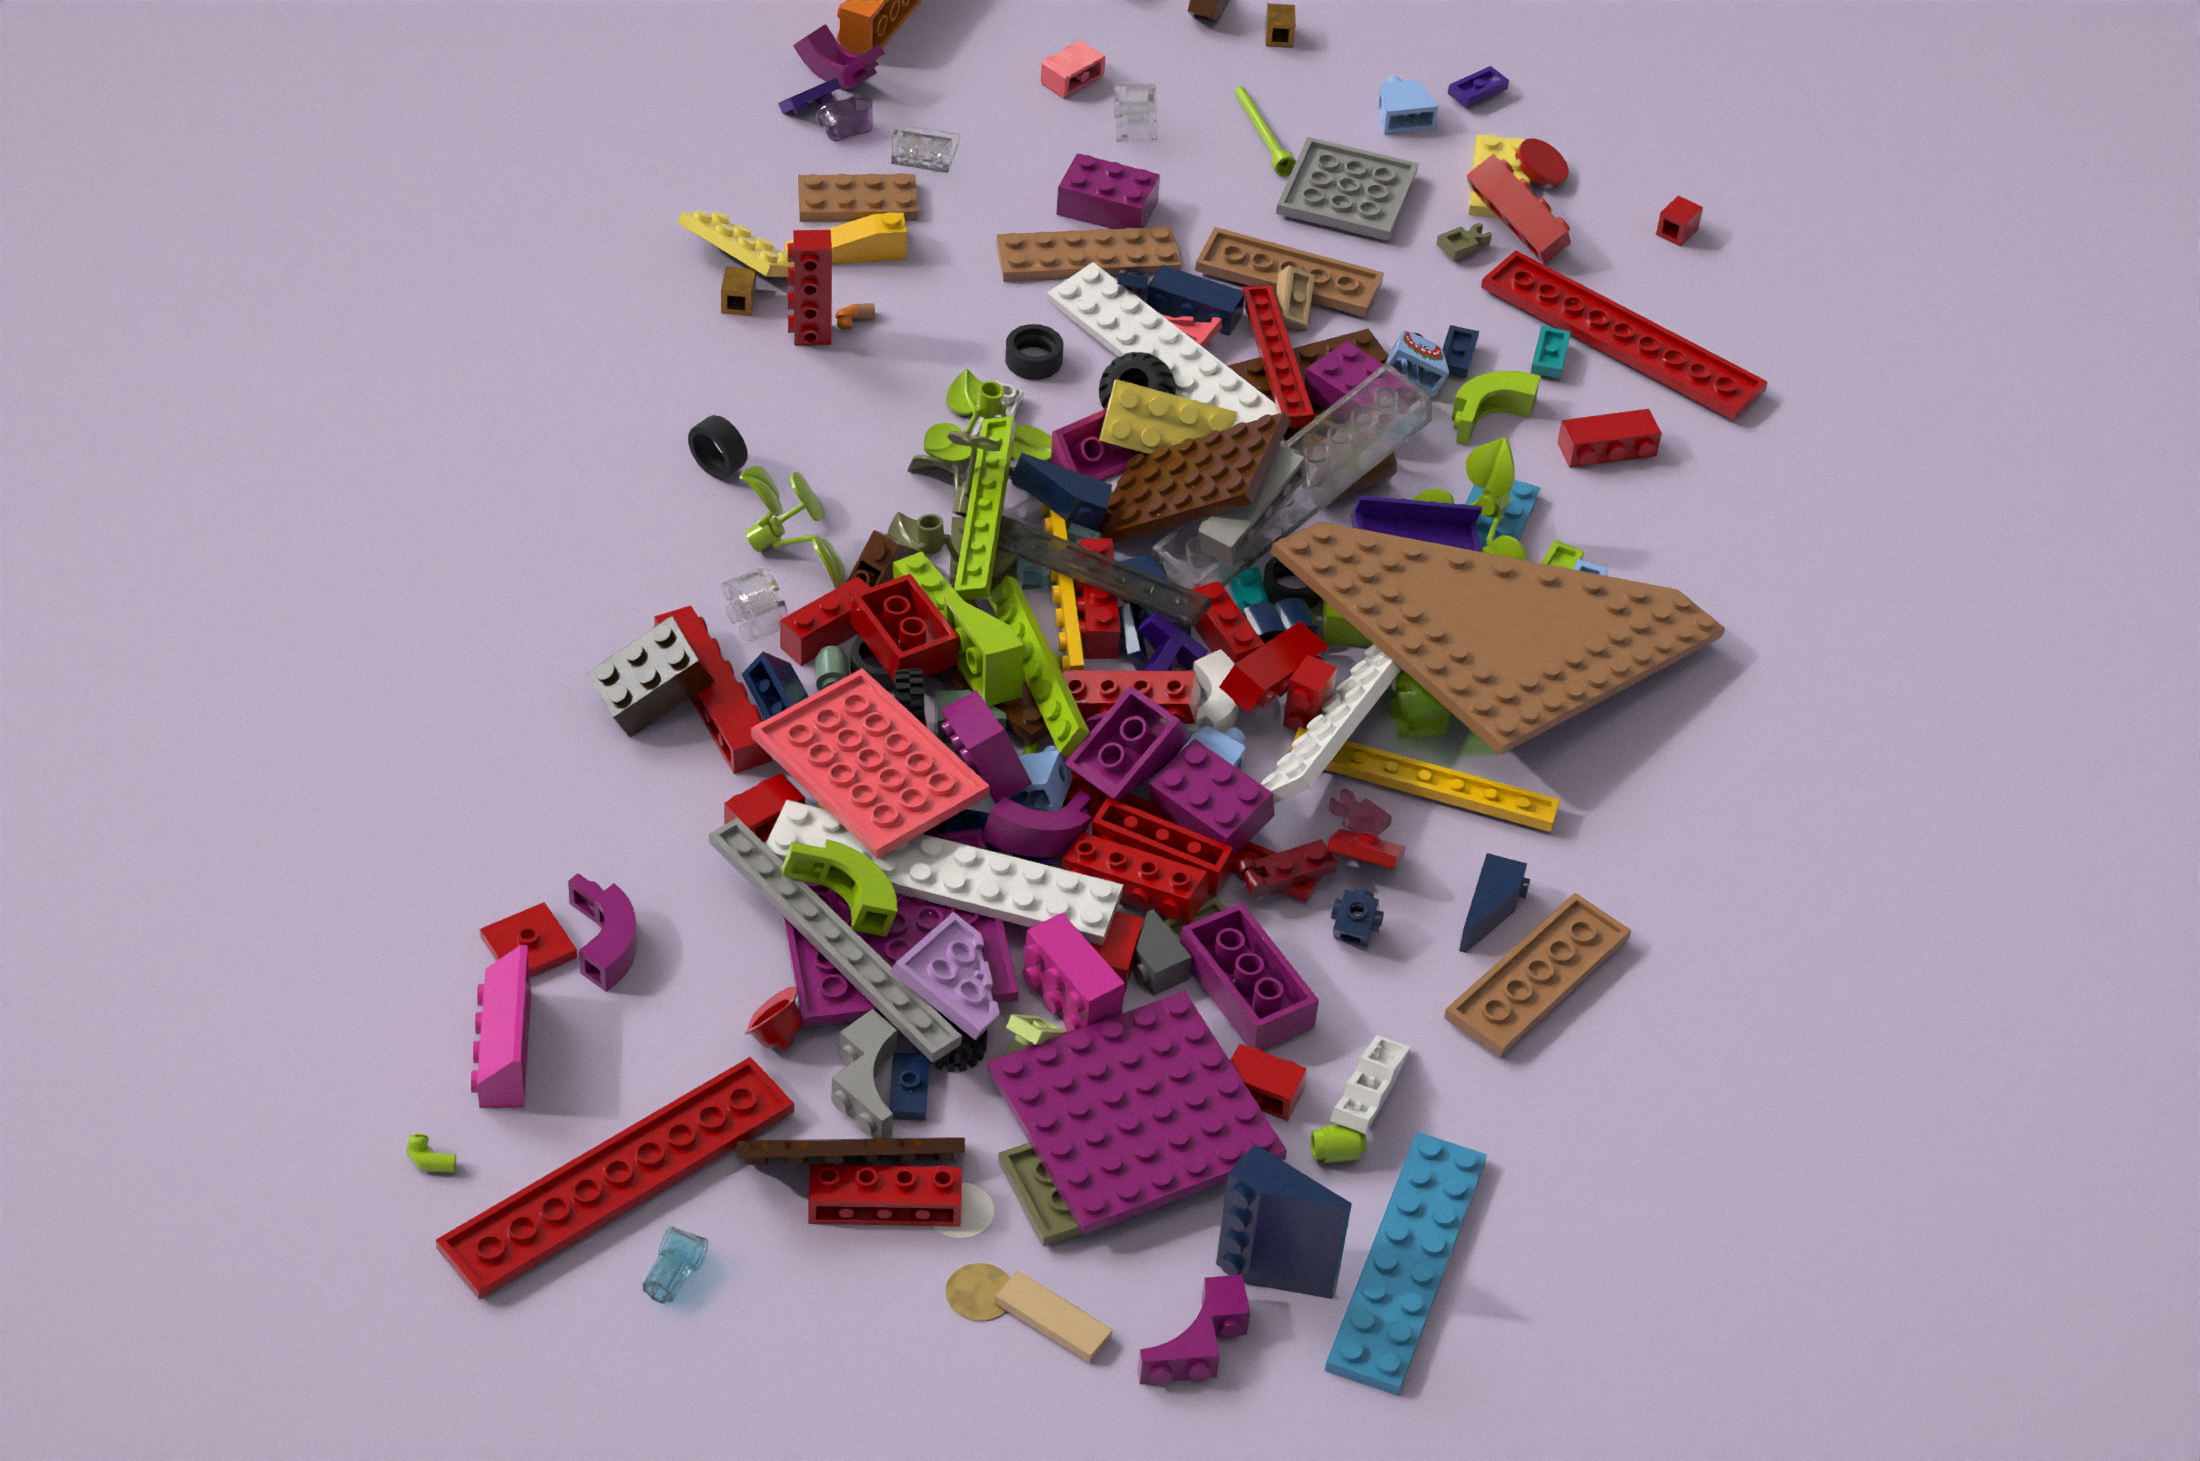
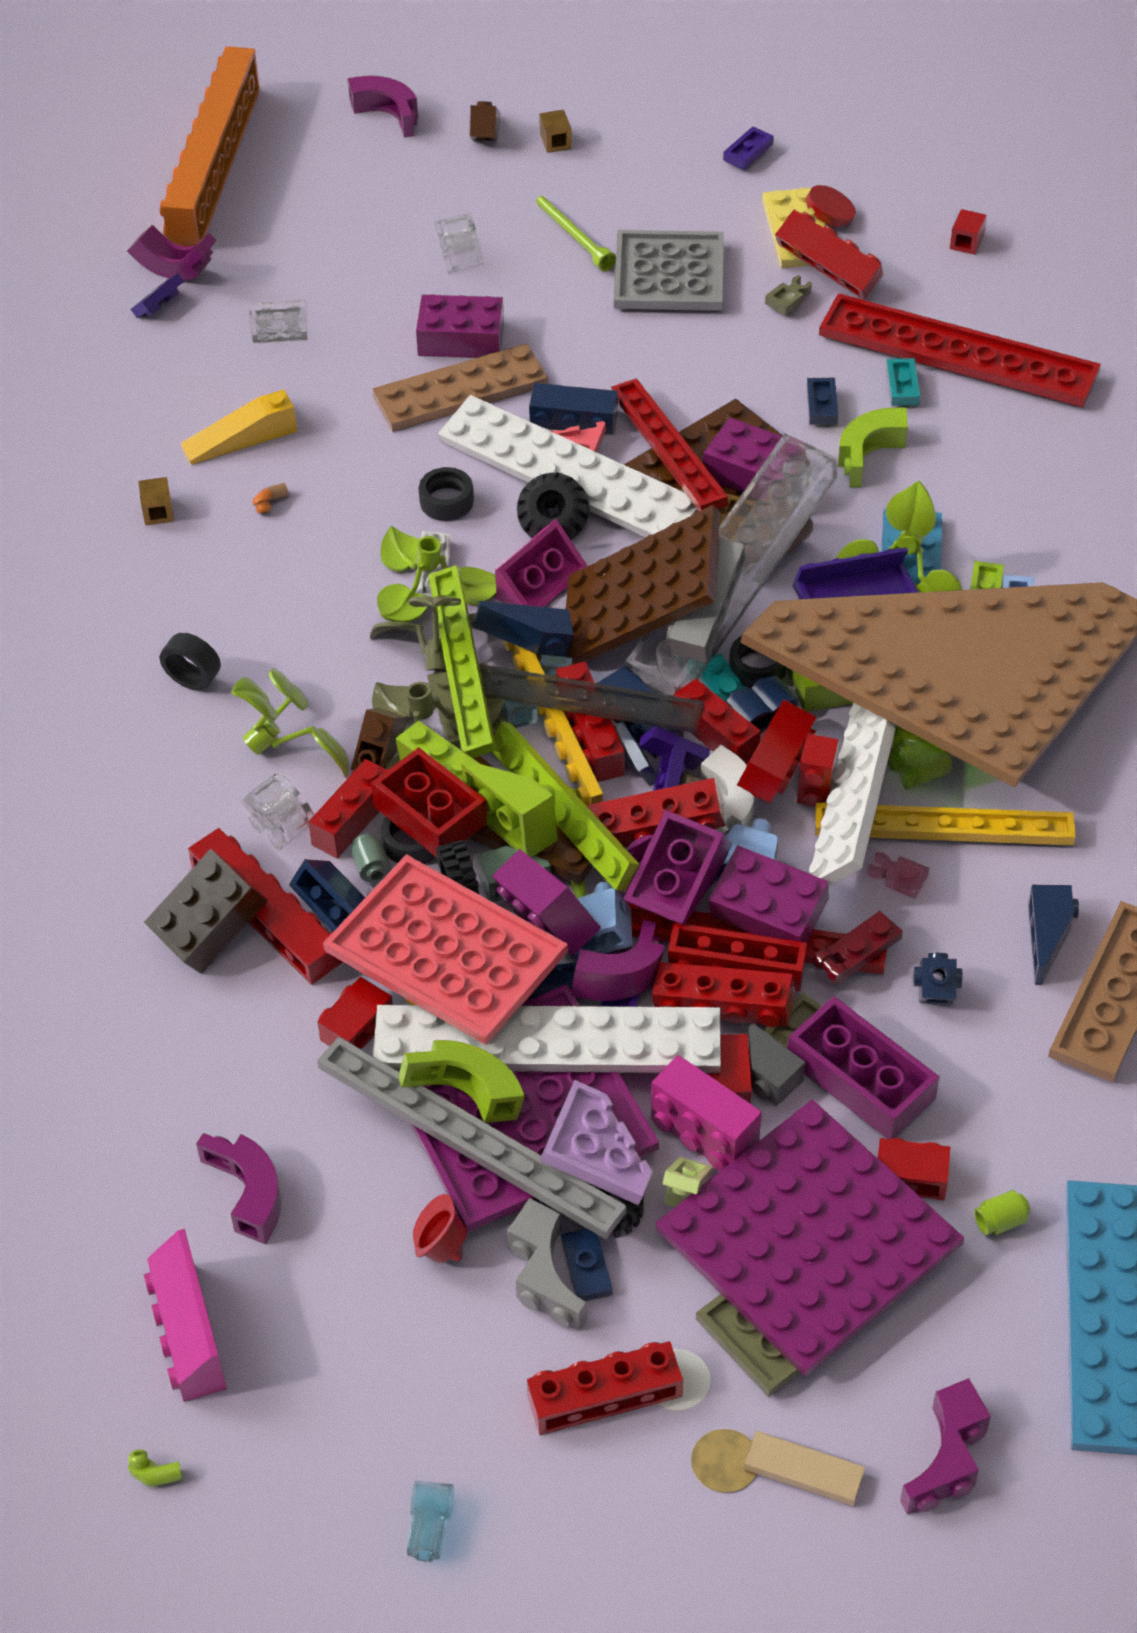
camera: 10 degrees left, 5 degrees up
(533, 927) = (175, 1206): red plate -> none
(613, 1177) = (338, 1444): red plate -> none
(737, 242) = (139, 453): light yellow plate -> none
(811, 287) = (229, 484): red brick -> none
(835, 1150) = (545, 1354): reddish brown wing -> none
(849, 117) = (200, 308): clear purple piece -> none
(856, 196) = (232, 382): medium nougat plate -> none
(1072, 68) = (385, 214): coral brick -> none
(1134, 280) = (513, 402): dark blue plate -> none
(1151, 418) = (585, 535): light yellow plate -> none
(1260, 261) = (646, 359): medium nougat plate -> none
(1281, 1227) = (998, 1325): dark blue slope -> none
(1295, 296) = (660, 382): tan slope -> none
(1366, 848) = (921, 908): red plate -> none
(1370, 1084) = (1011, 1145): white slope -> none
(1405, 106) = (692, 181): light blue torso -> none
(1419, 361) = (794, 418): light blue torso -> none
(1609, 438) = (984, 451): red brick -> none

